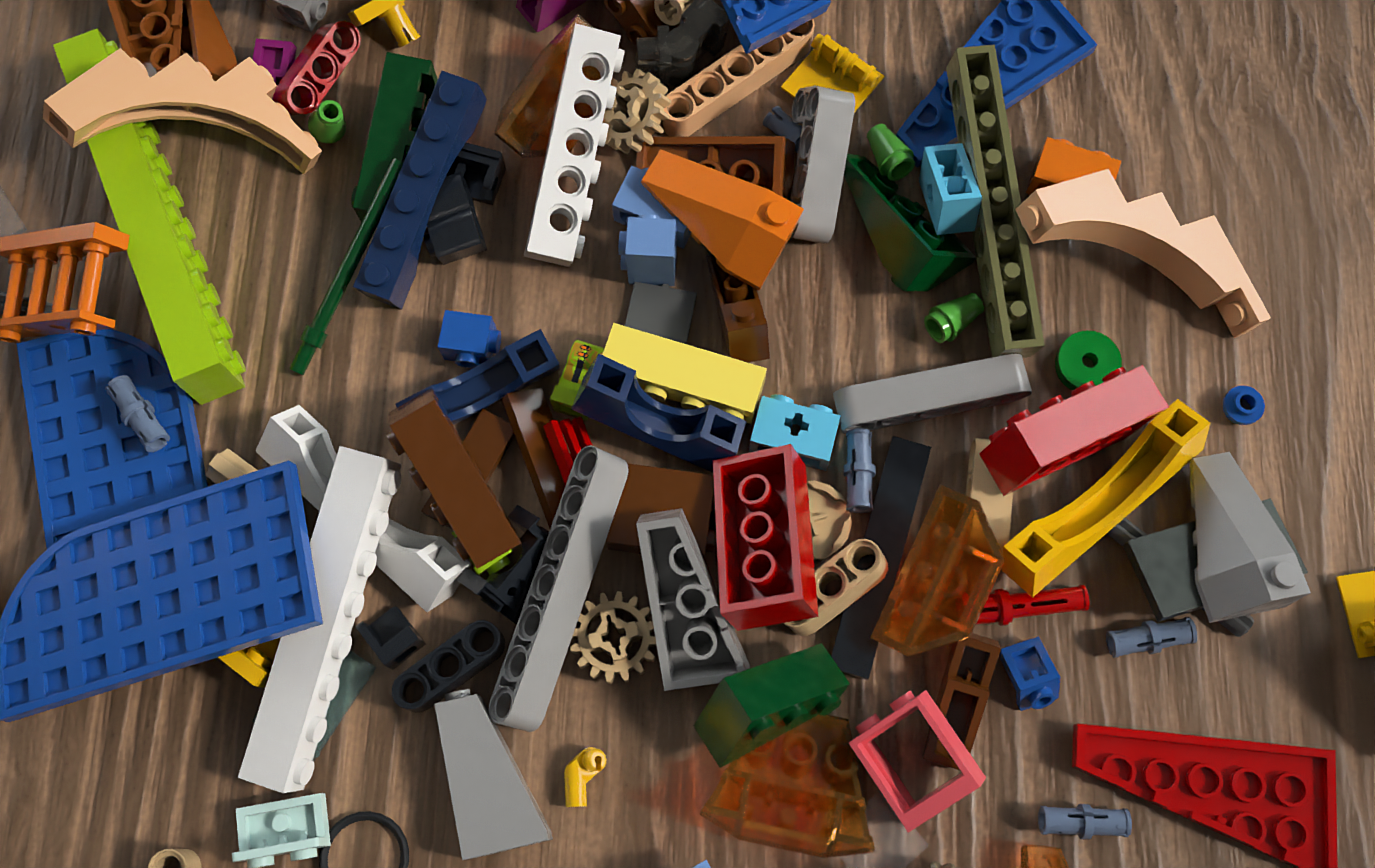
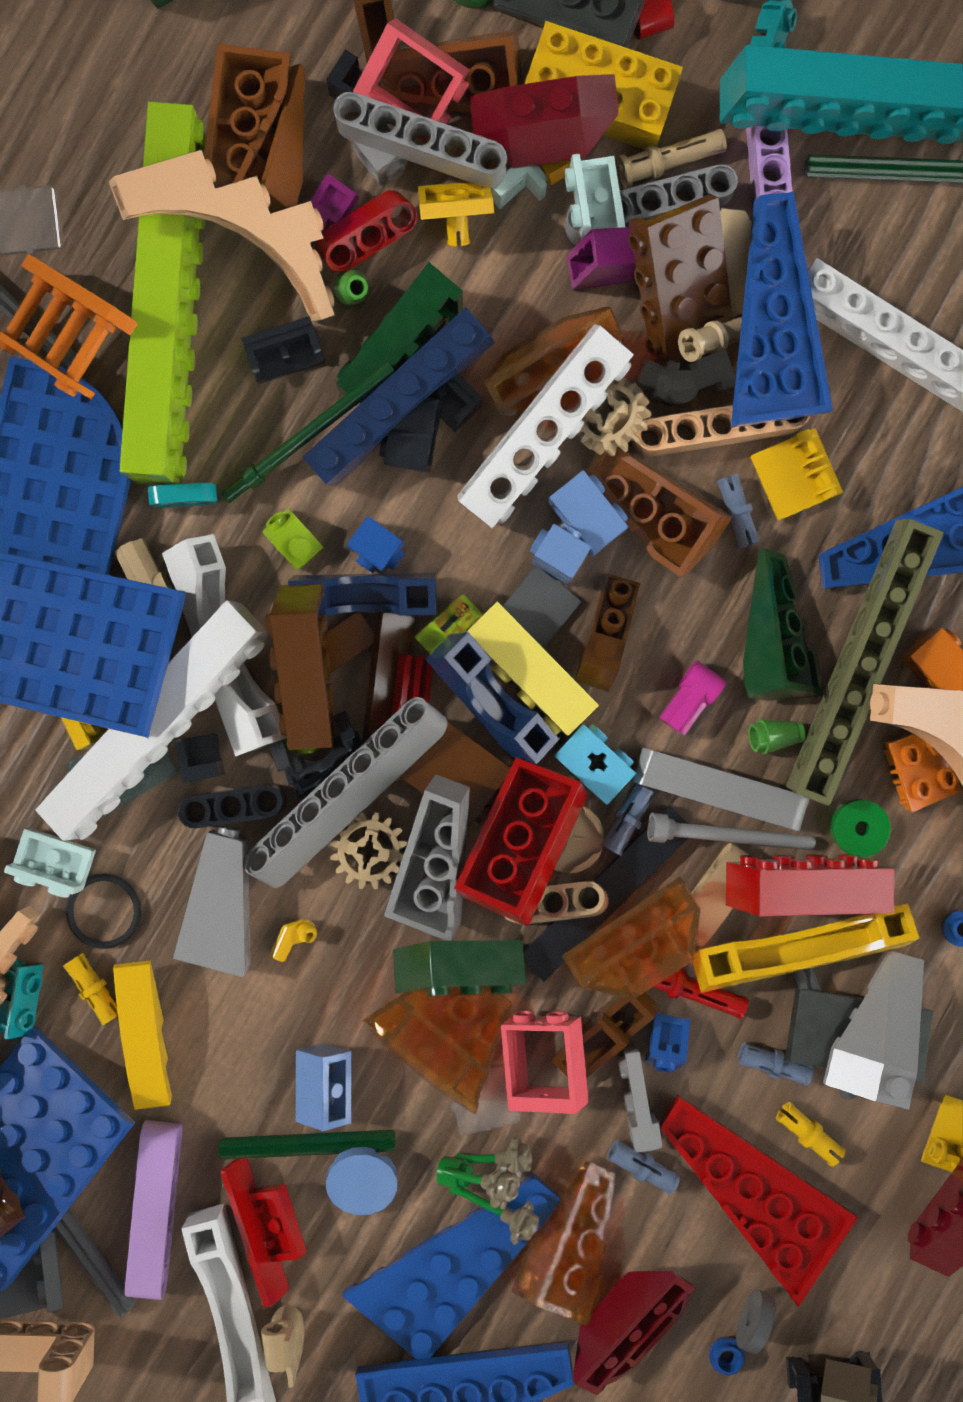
camera: 30 degrees right, 15 degrees up
(137, 413) = (81, 475): sand blue pin -> none
(251, 388) = (182, 495): none -> teal beam
(288, 208) = (283, 350): none -> black hinge
(381, 374) = (291, 538): none -> lime bracket
(729, 216) = (638, 565): orange wedge -> none
(821, 158) = (744, 547): light grey beam -> none
(854, 315) = (696, 691): none -> dark pink piece
(890, 153) = (806, 566): bright green cone -> none
(897, 457) = (663, 828): none -> light grey piece
(950, 189) = (834, 630): medium azure brick -> none
(1059, 777) = (643, 1125): none -> light grey plate
(1112, 275) = (921, 772): none -> orange hinge
(1232, 690) = (810, 1134): none -> yellow pin

